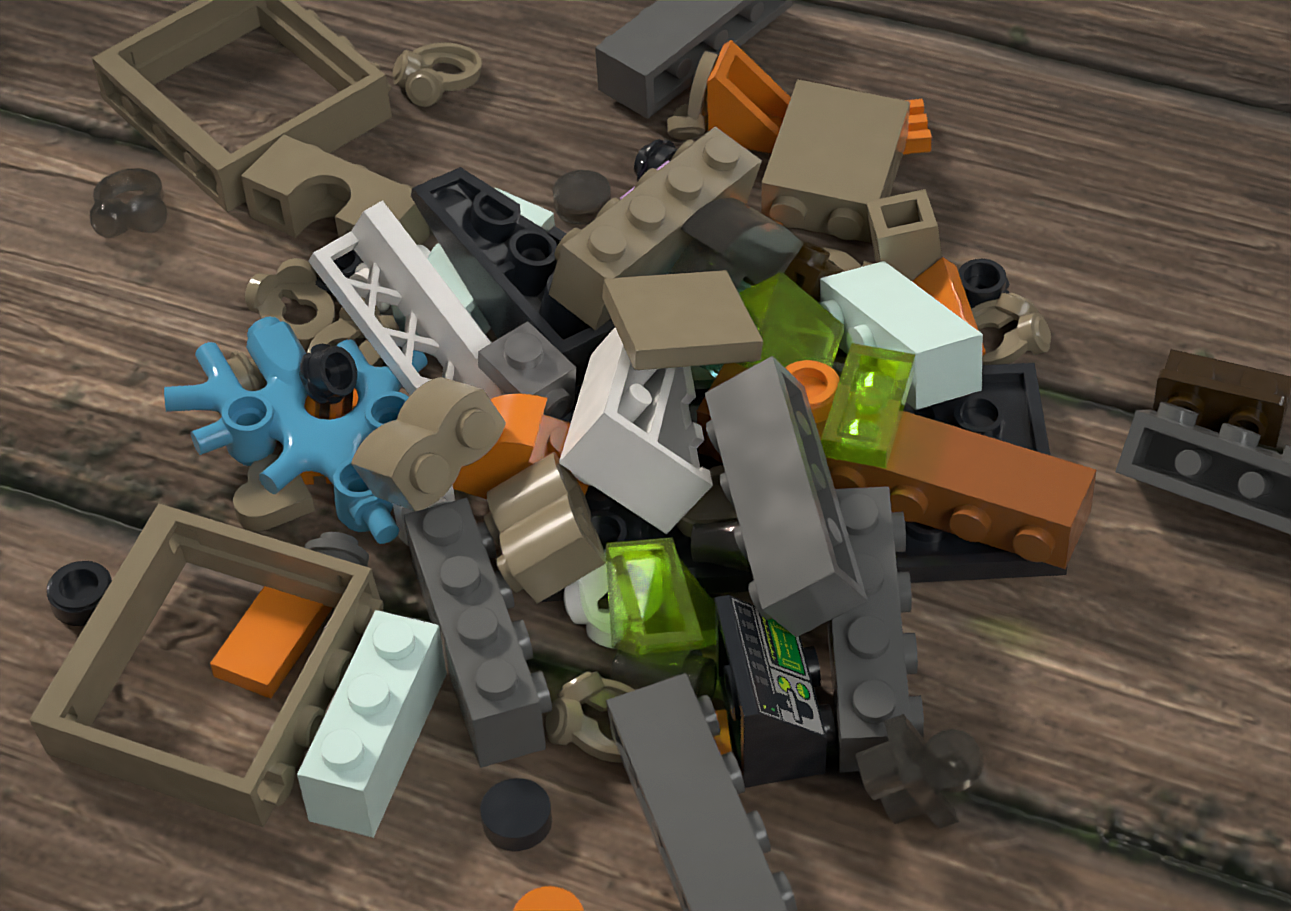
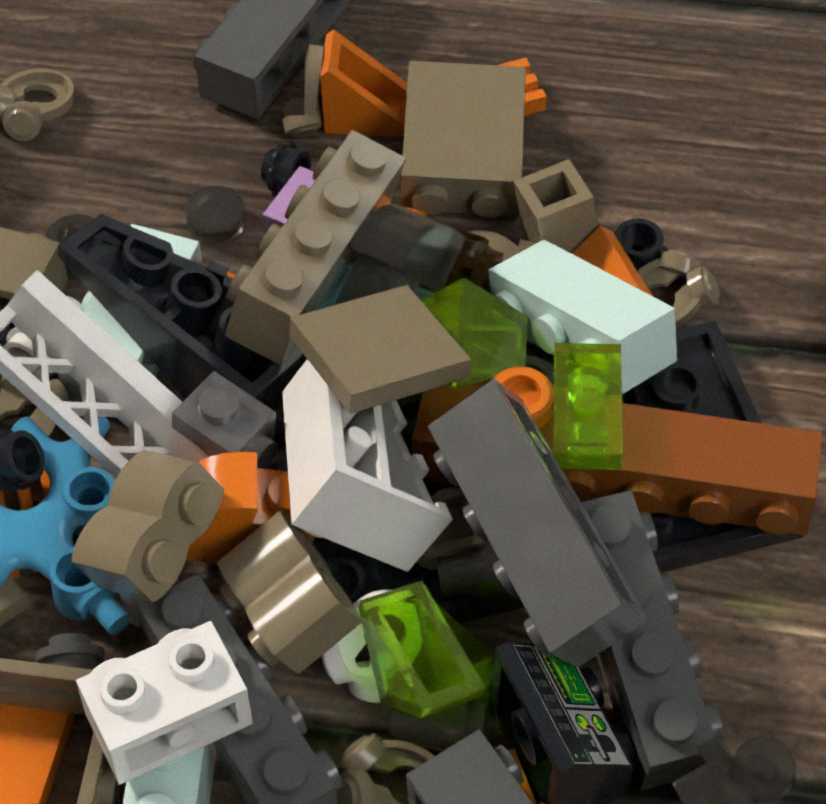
camera: 15 degrees left, 5 degrees up
(398, 593) = (164, 701): none -> white brick

